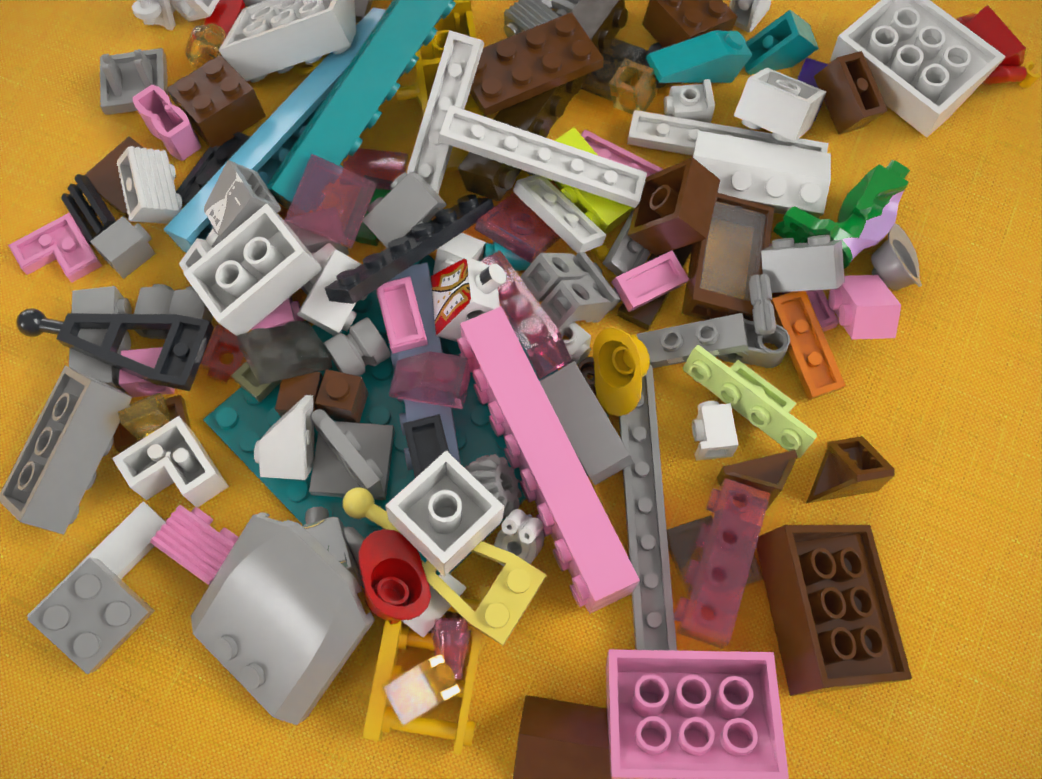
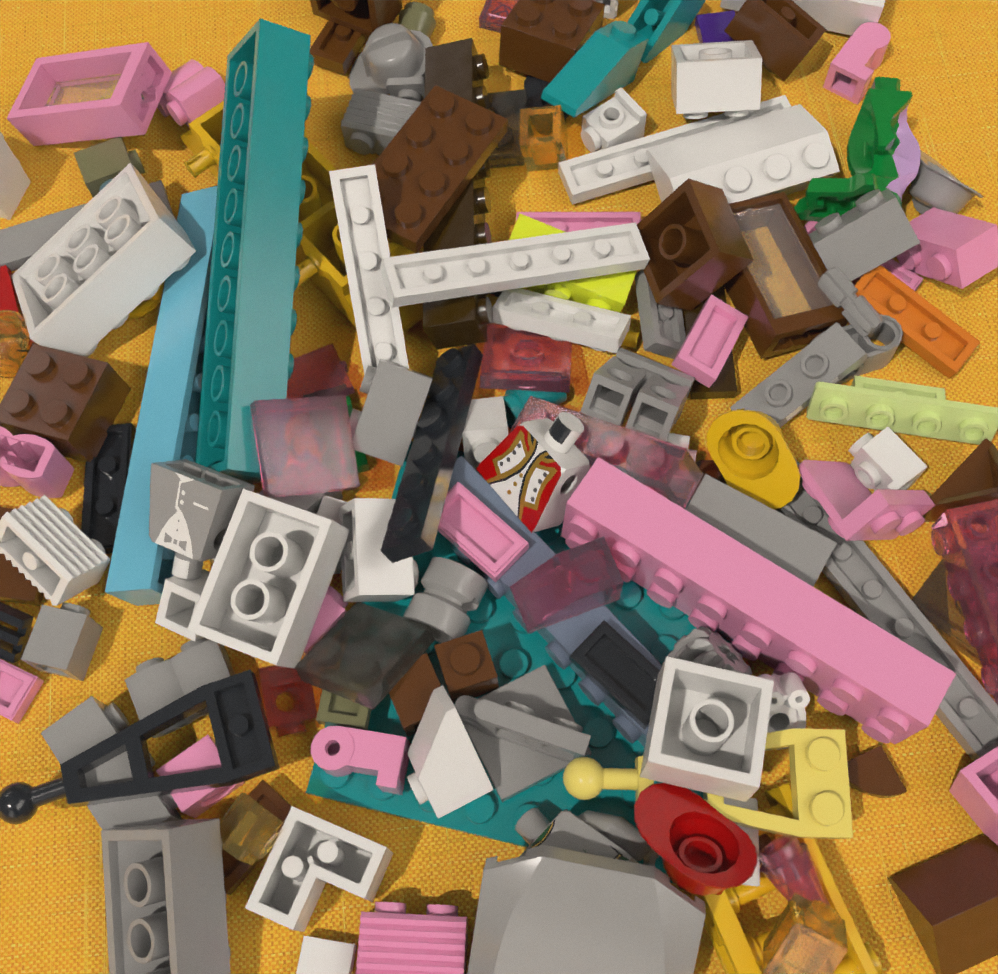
camera: 30 degrees left, 0 degrees up
(241, 408) = (350, 750): none -> bright pink leg
(560, 623) = (875, 775): none -> reddish brown tile
(670, 444) = (857, 512): none -> bright pink bracket
(903, 143) = (856, 62): none -> bright pink leg

